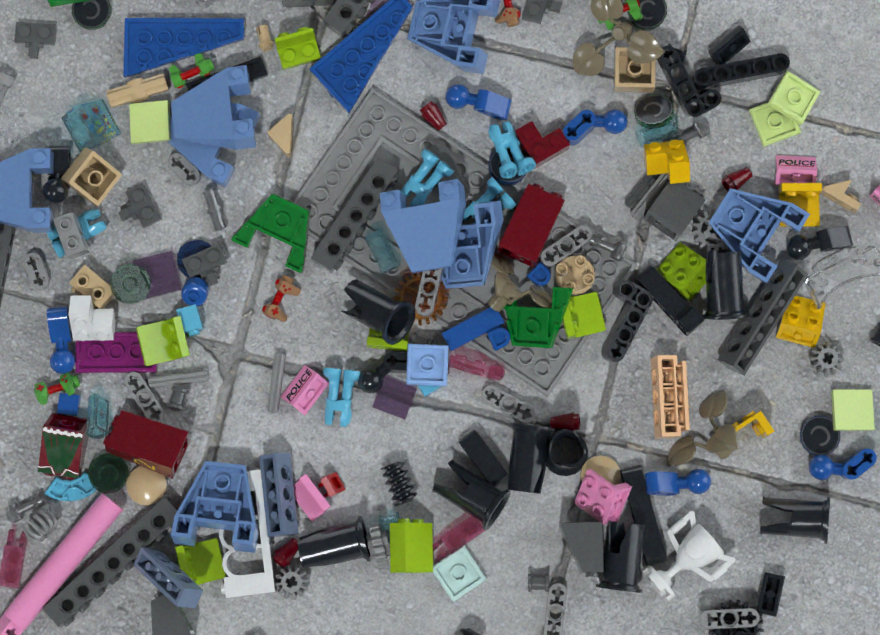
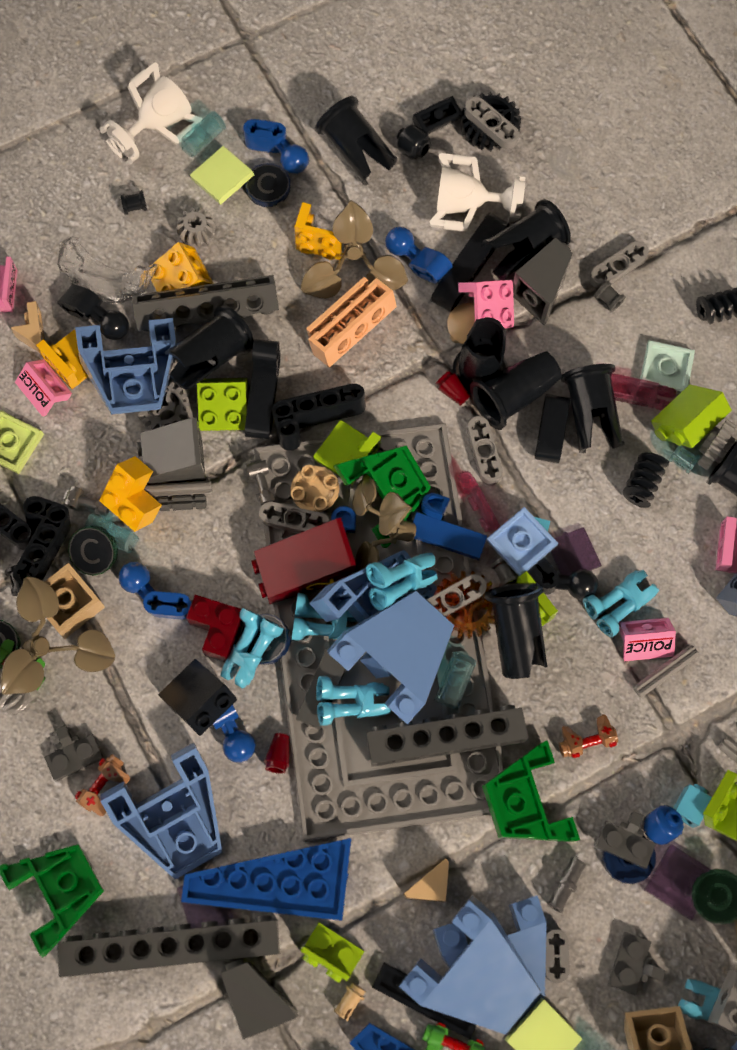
camera: 135 degrees left, 10 degrees down
(332, 485) = (704, 535): red tile -> none
(463, 272) = (380, 576): none -> medium azure piece
(506, 94) = (197, 697): none -> black panel
(736, 179) = (96, 427): dark red cone -> none
(765, 558) = (413, 141): none -> black head

